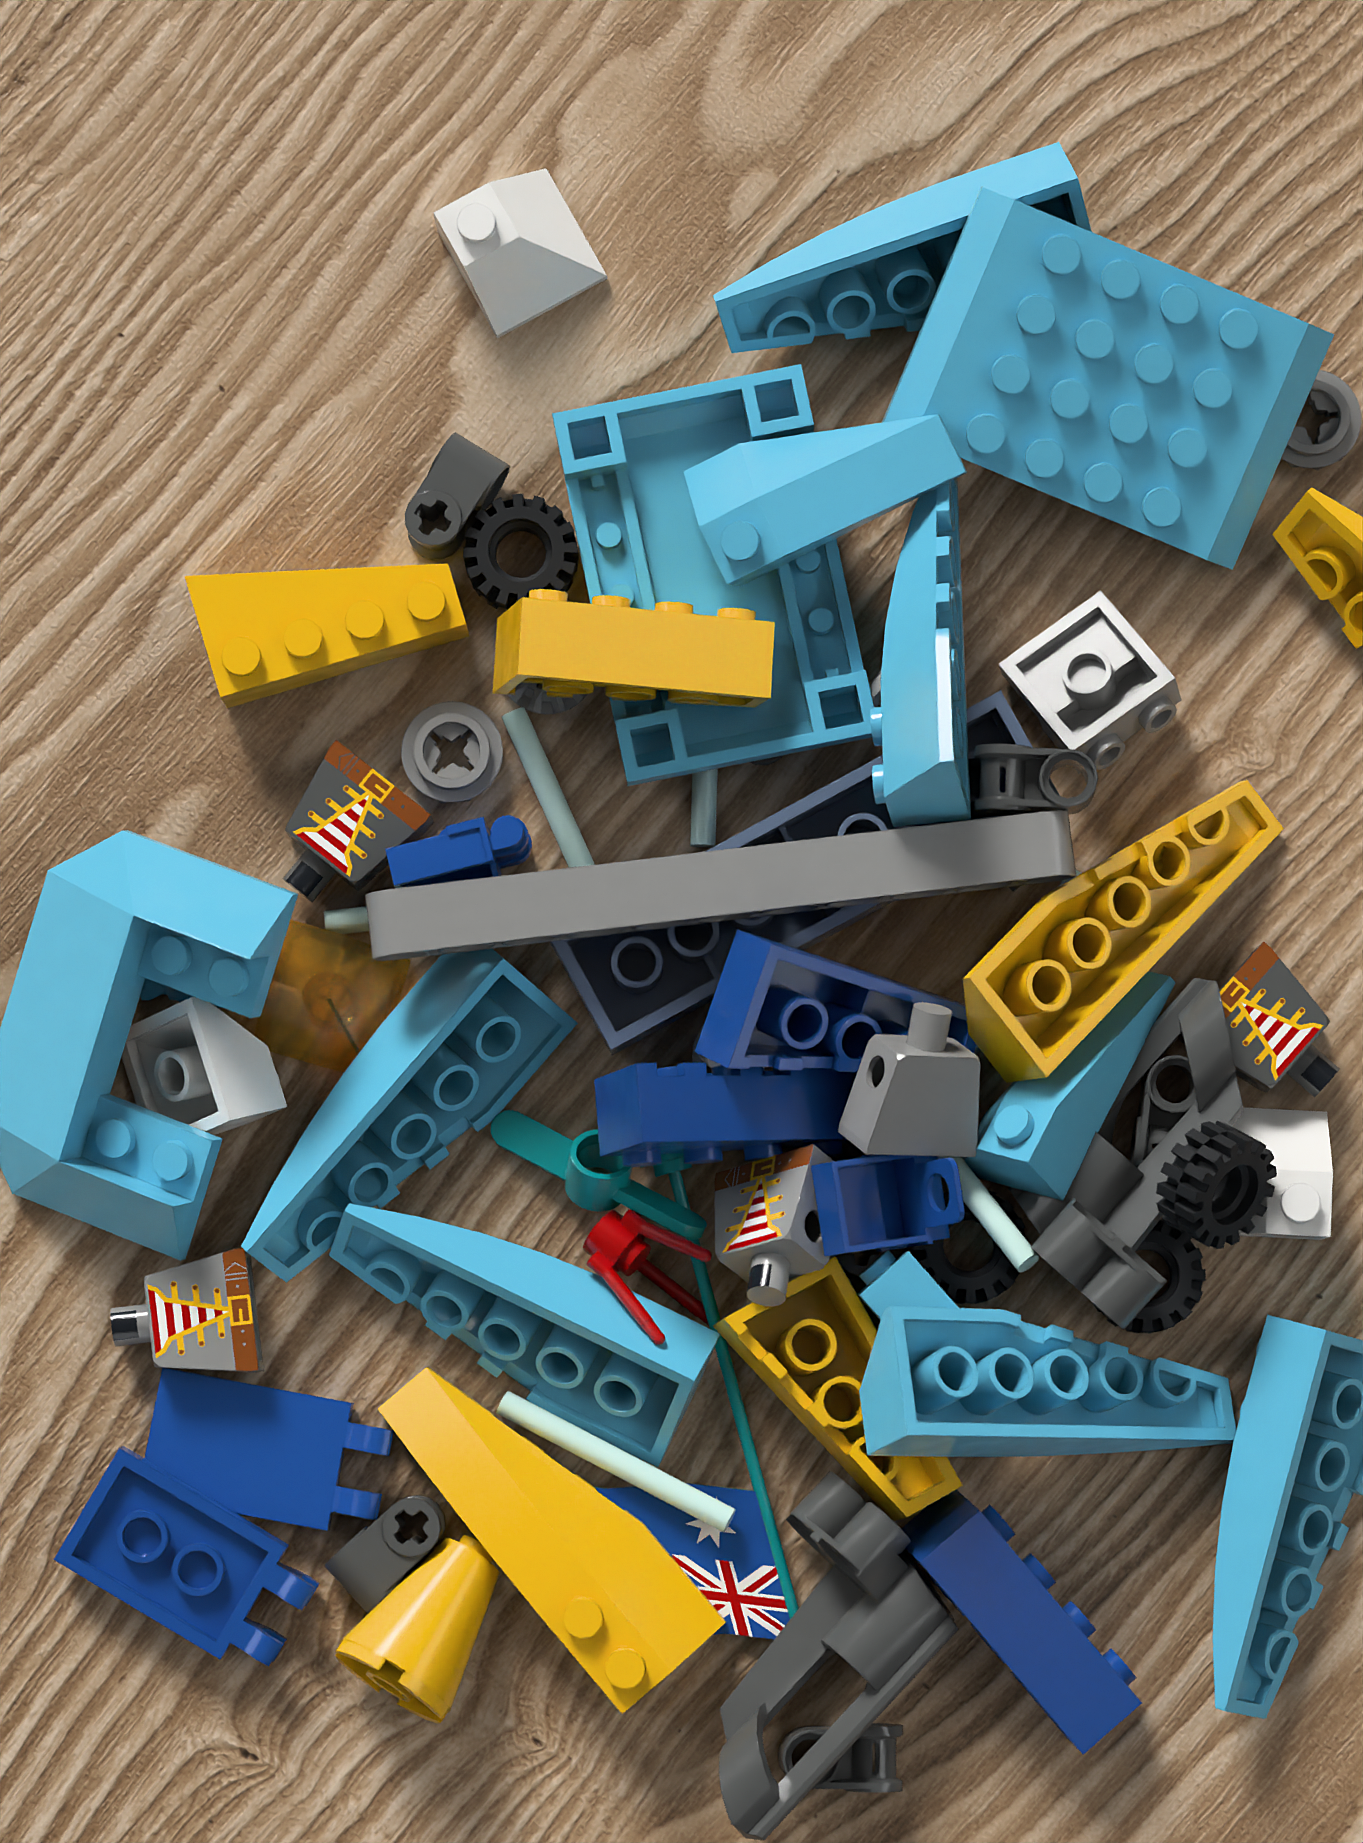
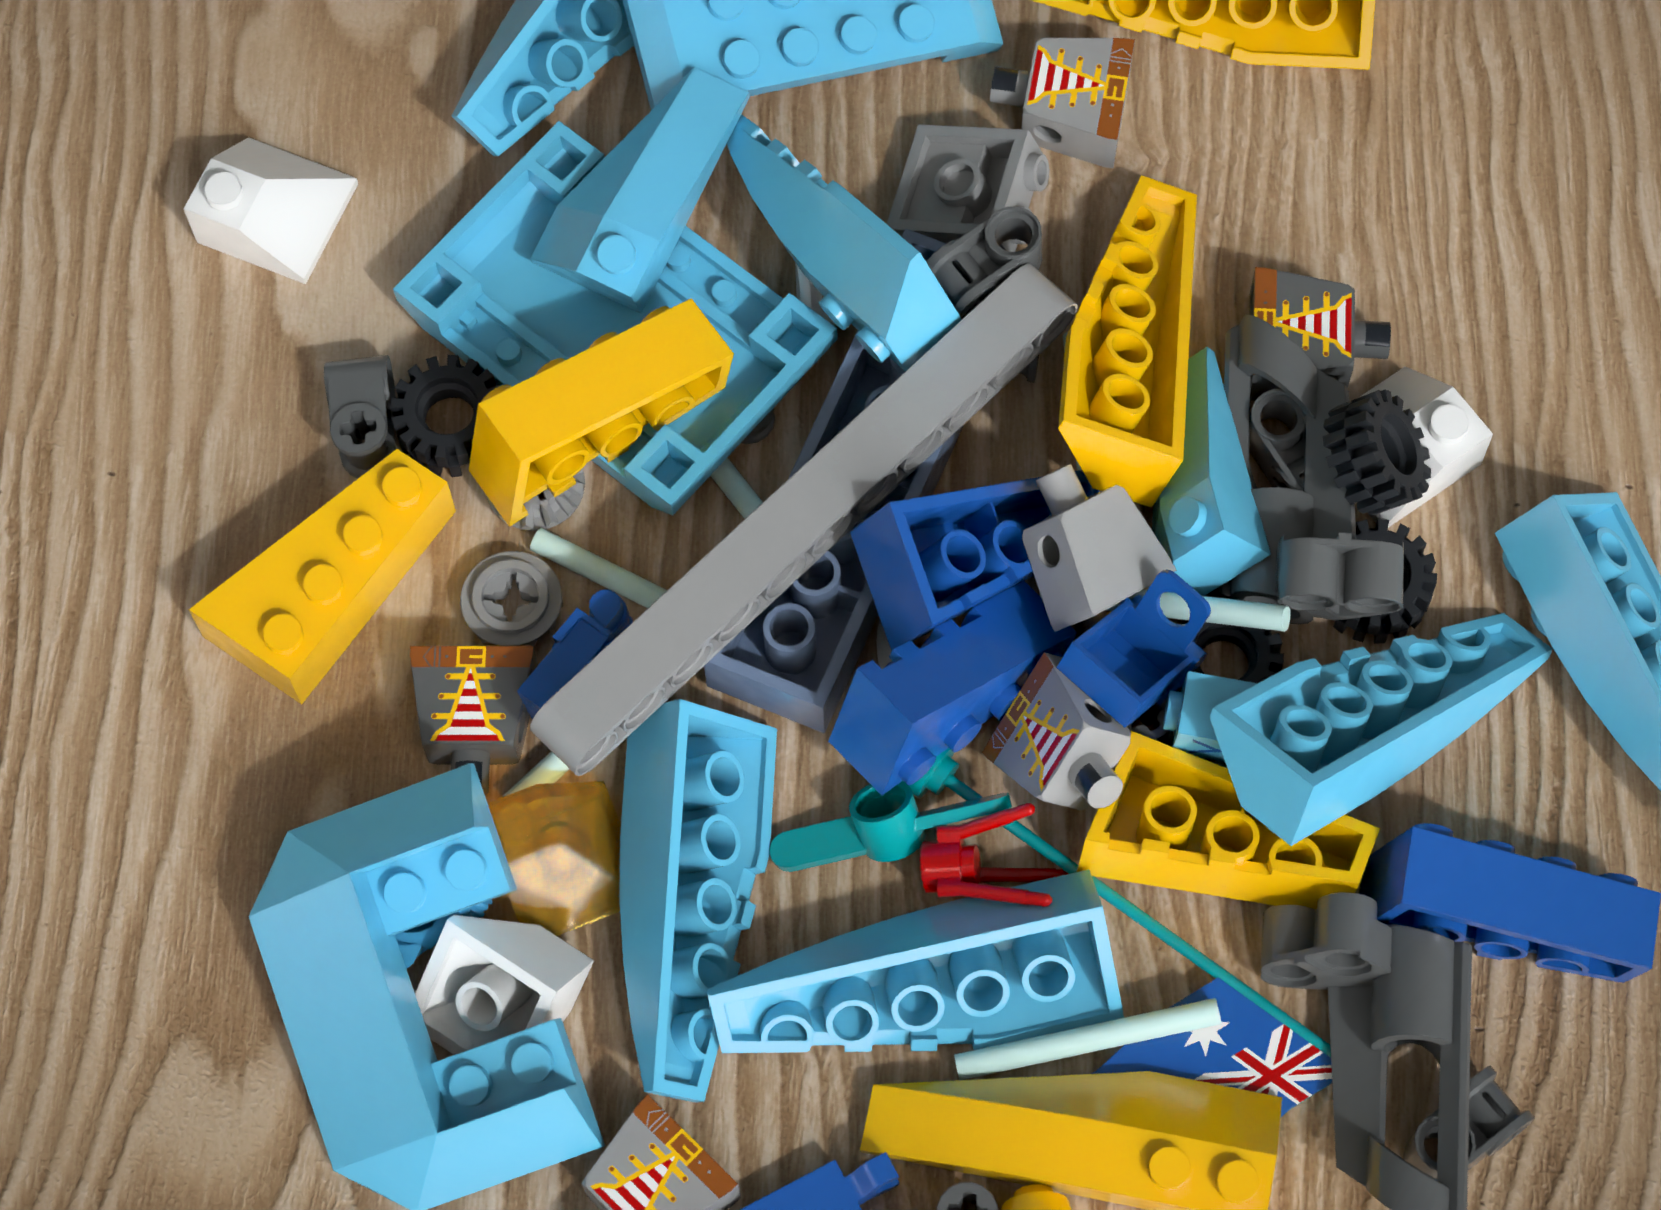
camera: 35 degrees left, 15 degrees down
(1248, 663) = (1071, 95): none -> torso

